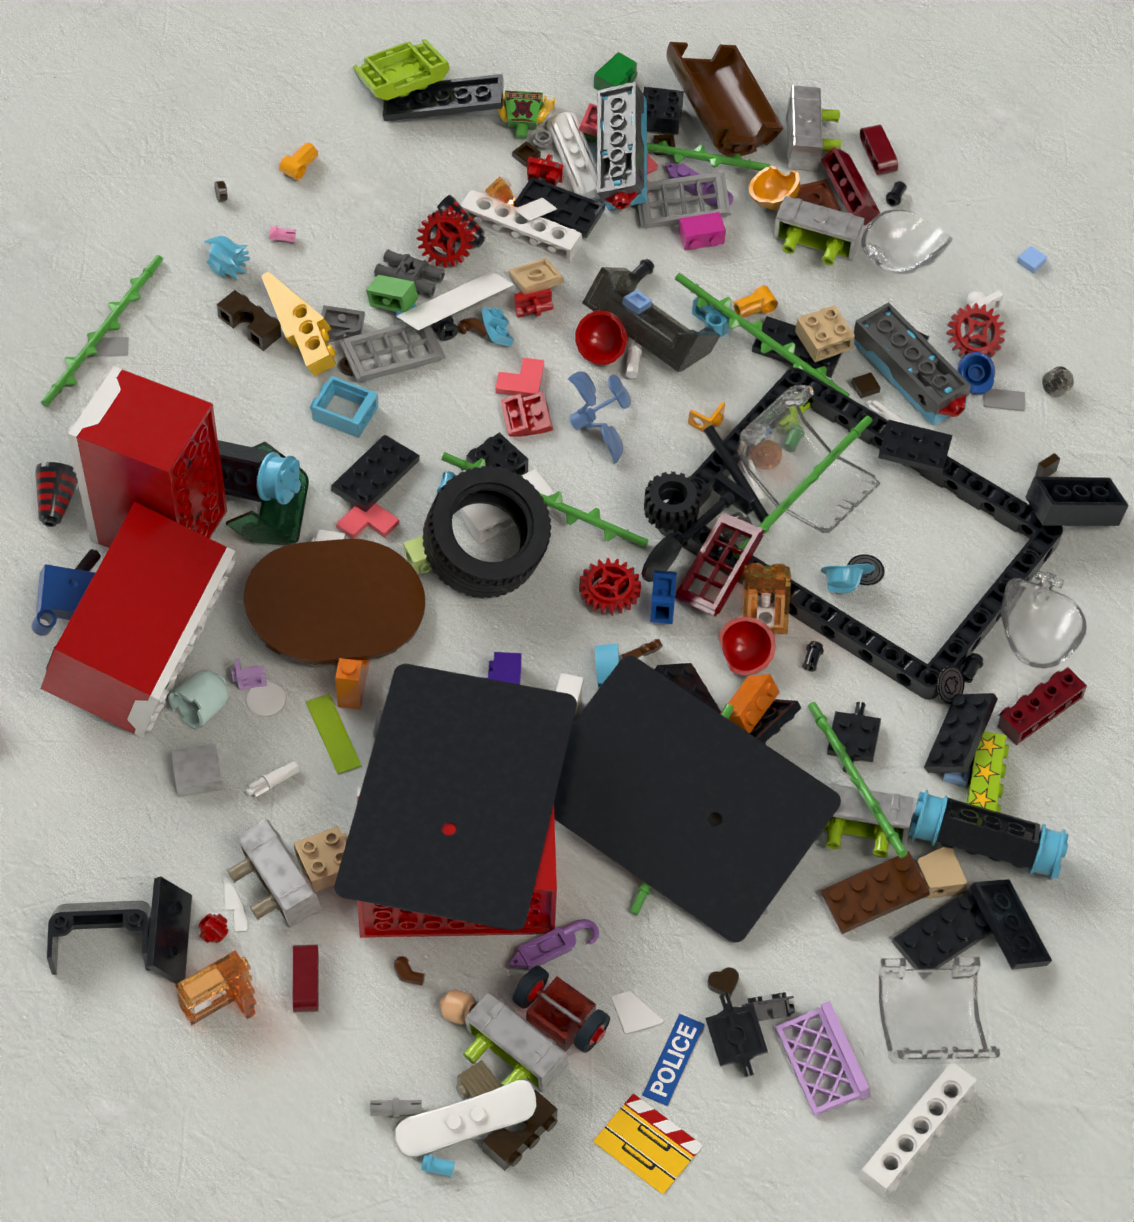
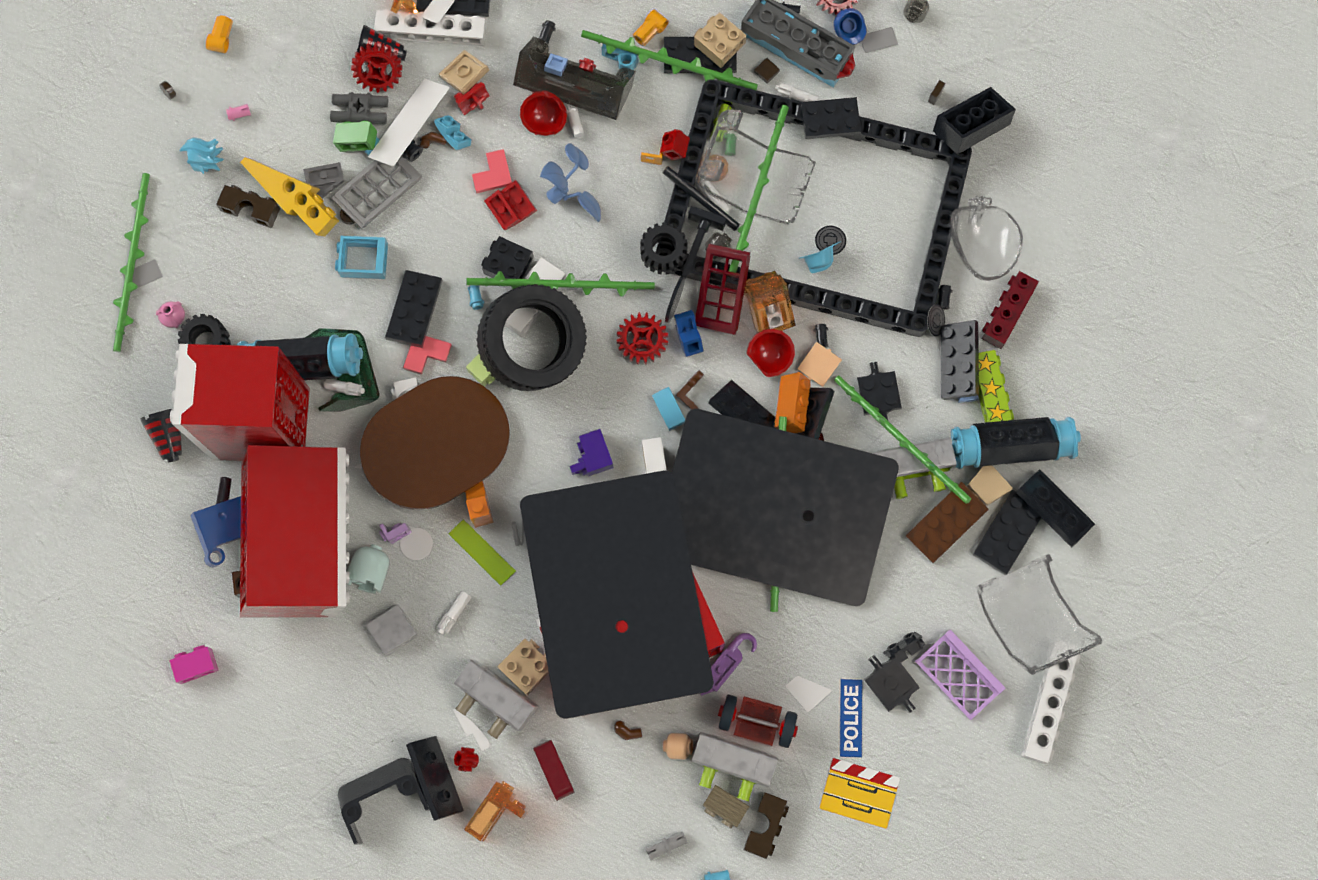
camera: 20 degrees left, 20 degrees up
(269, 516) = (344, 387): none -> white piece
(466, 1119) = (724, 837): white piece -> none
(670, 312) = (587, 65): none -> red plate
(723, 981) = (863, 641): dark brown tile -> none
(730, 413) = (674, 144): none -> red brick
(798, 681) = (819, 364): none -> light nougat piece

